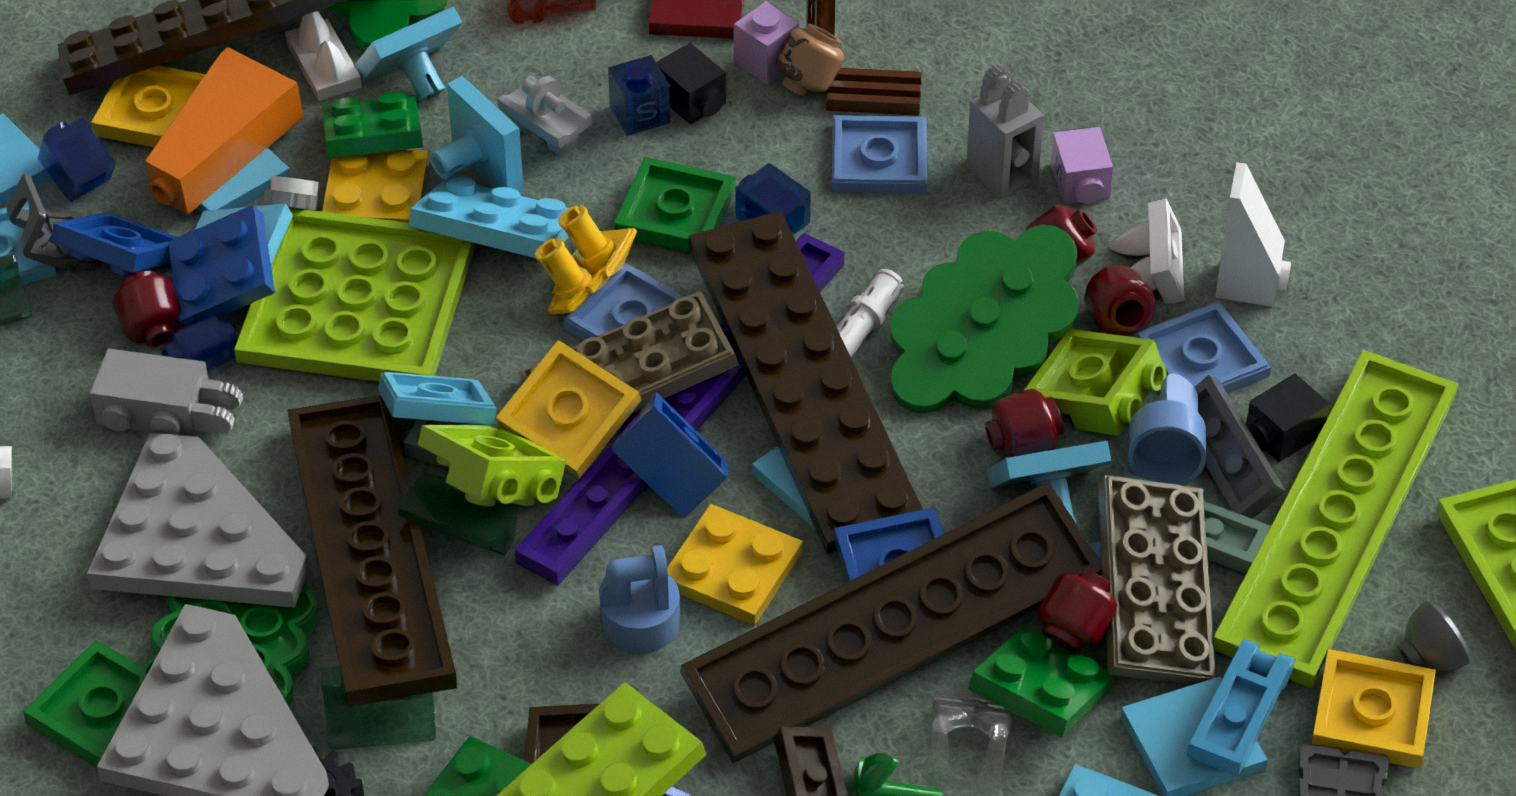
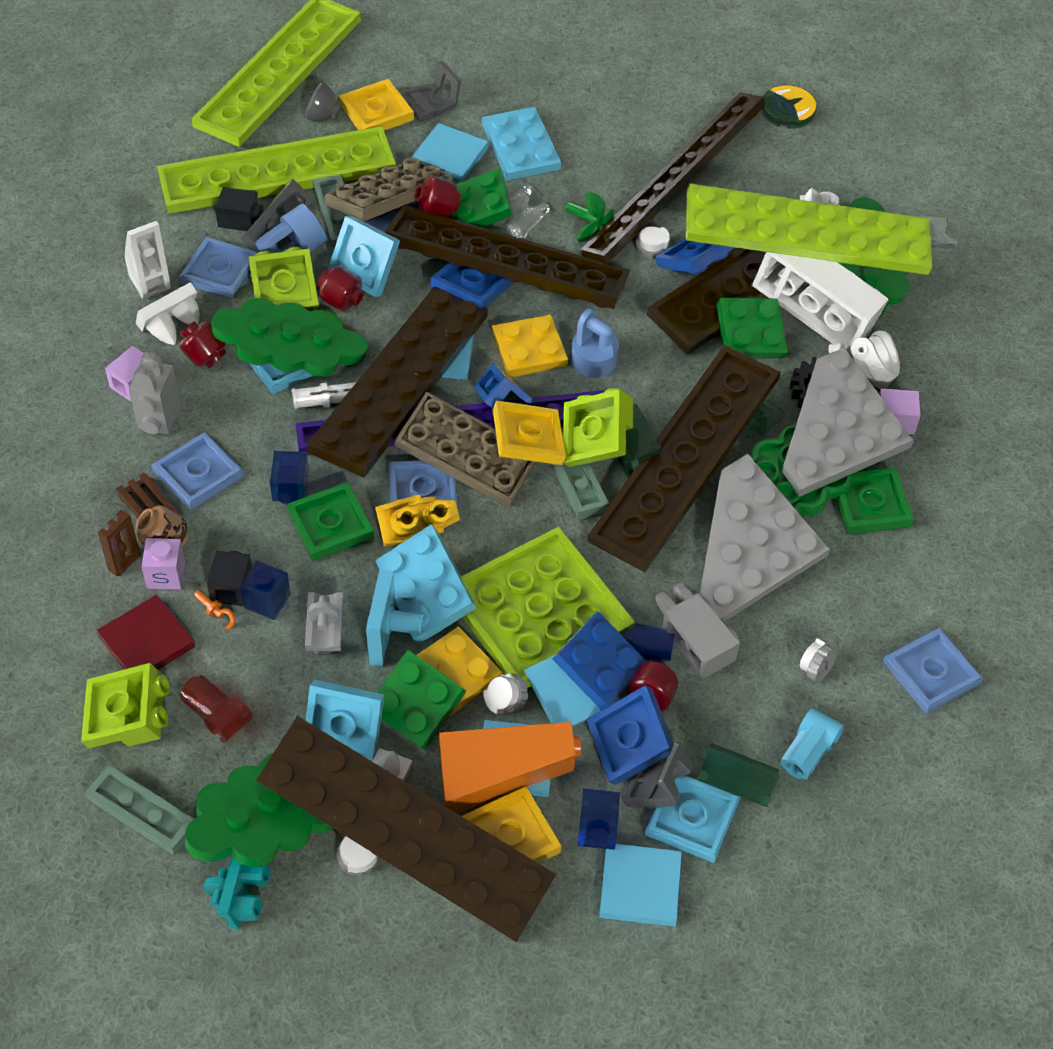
camera: 135 degrees left, 5 degrees up
(436, 398) = (576, 498): medium azure tile -> none
(1119, 300) = (222, 295): dark red head -> none
(1240, 708) = (425, 132): dark azure plate -> none

